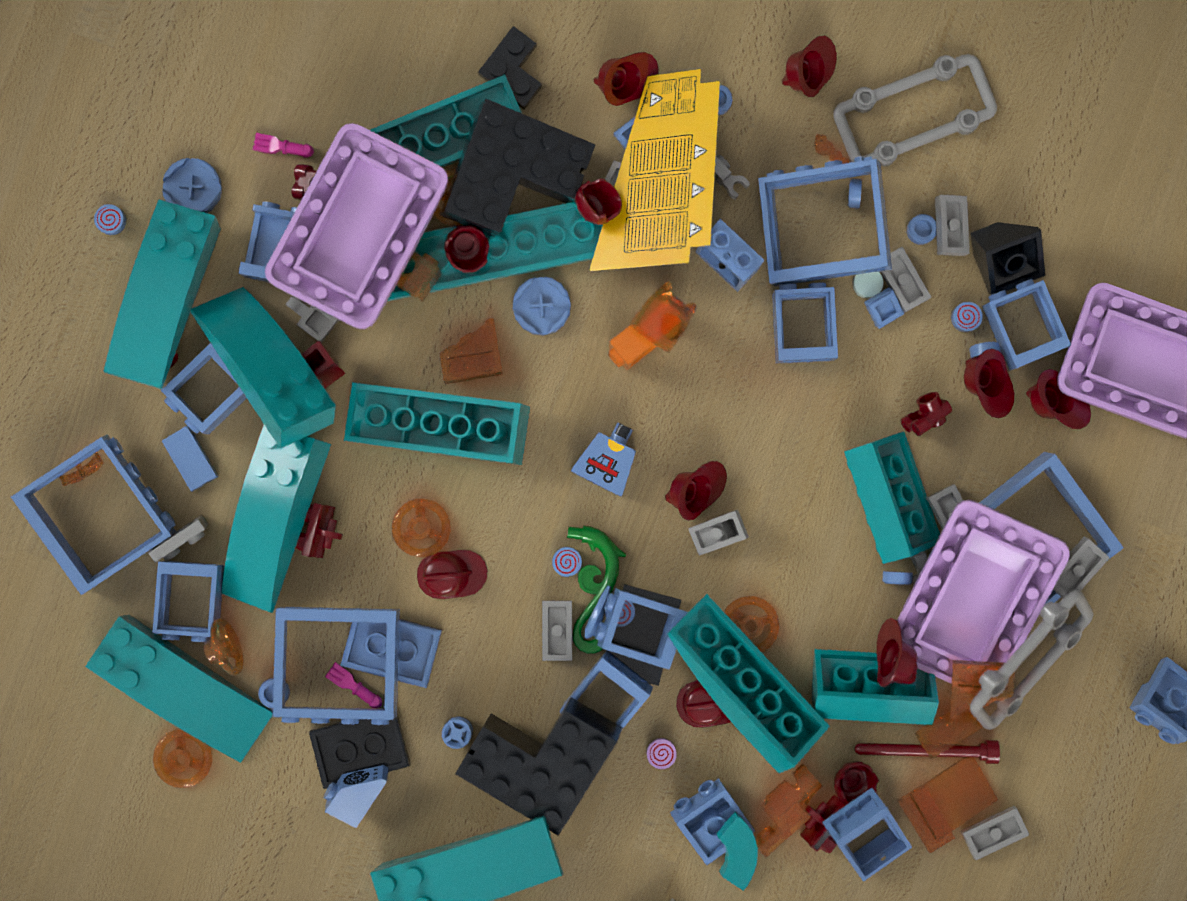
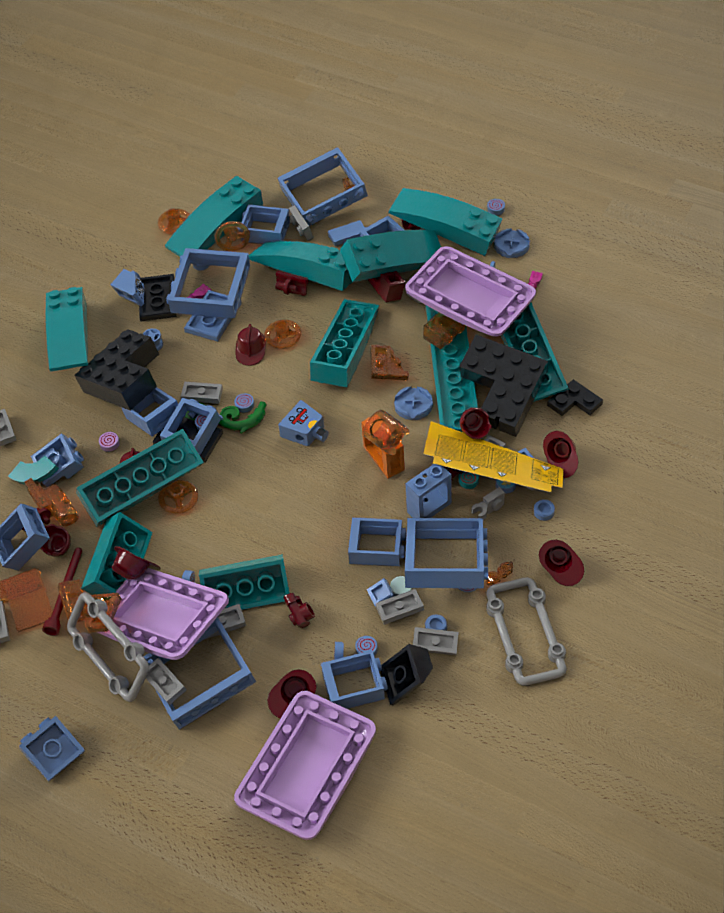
camera: 100 degrees right, 35 degrees down
(466, 248) = (451, 354): dark red hair -> none
(697, 490) = (273, 470): dark red piece -> none
(718, 532) = (244, 482): light grey slope -> none
(990, 381) = (312, 649): dark red piece -> none

